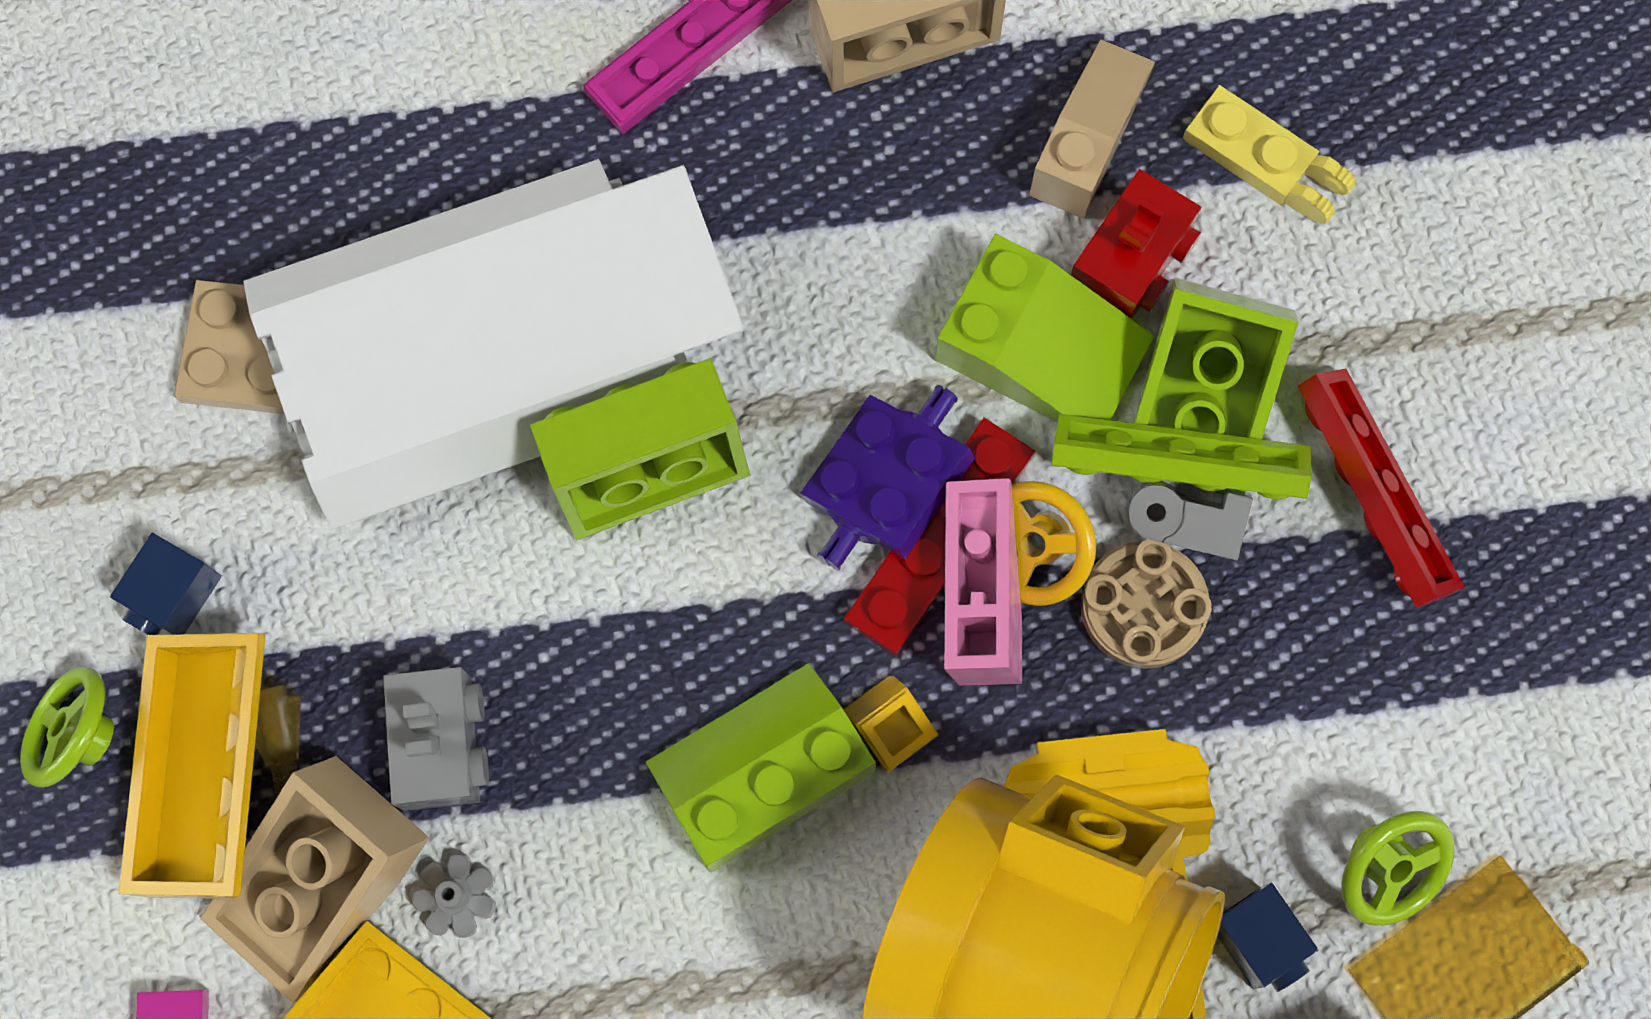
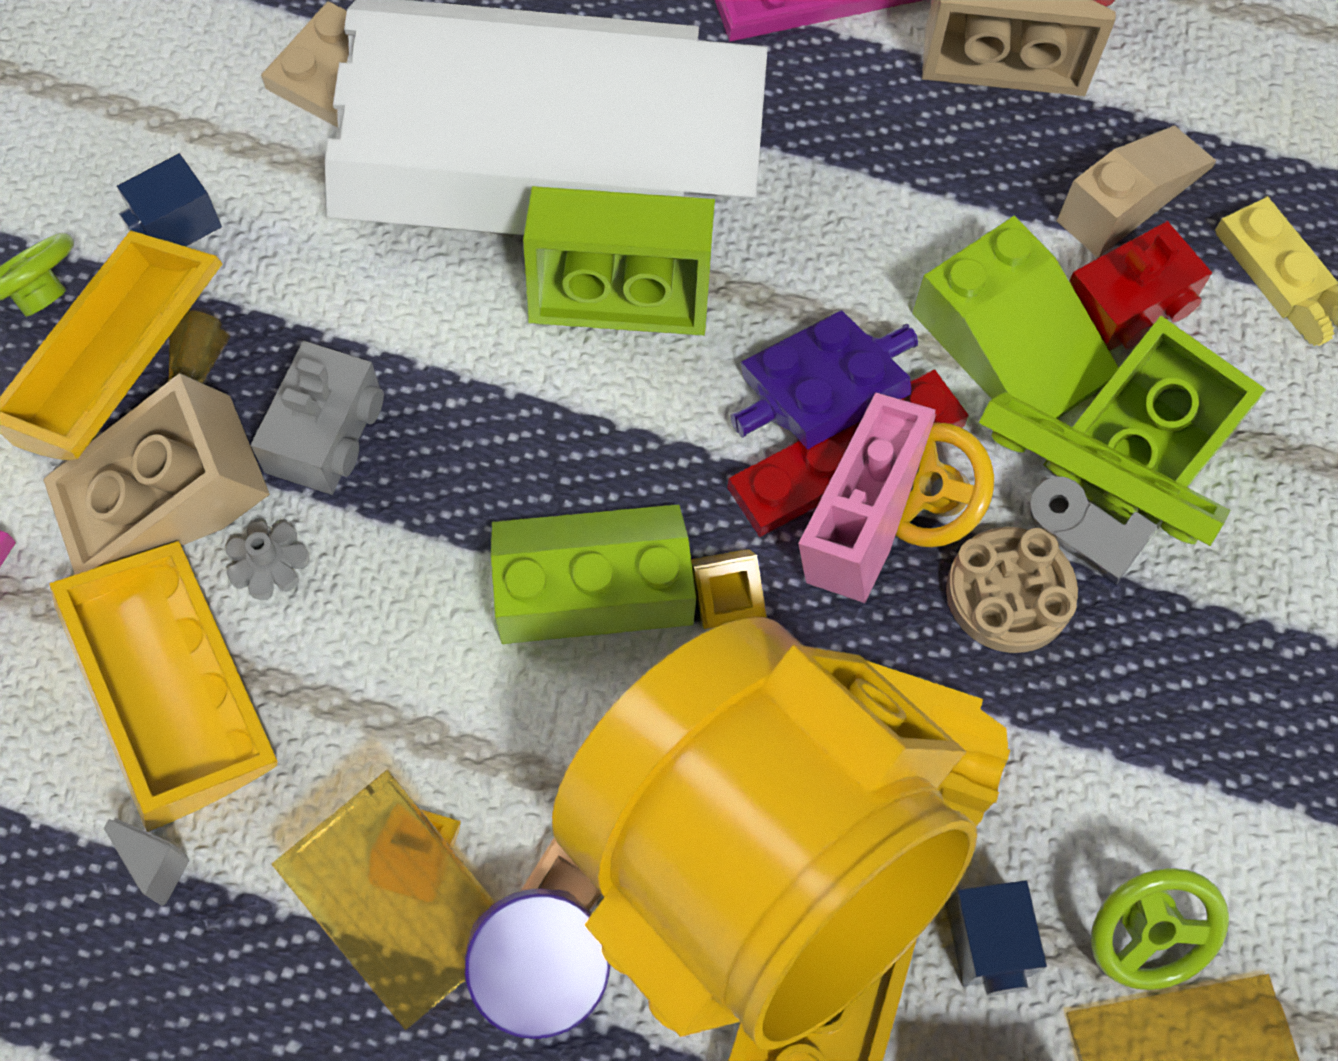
camera: 20 degrees right, 10 degrees down
(1380, 486) = (1285, 599): red plate -> none

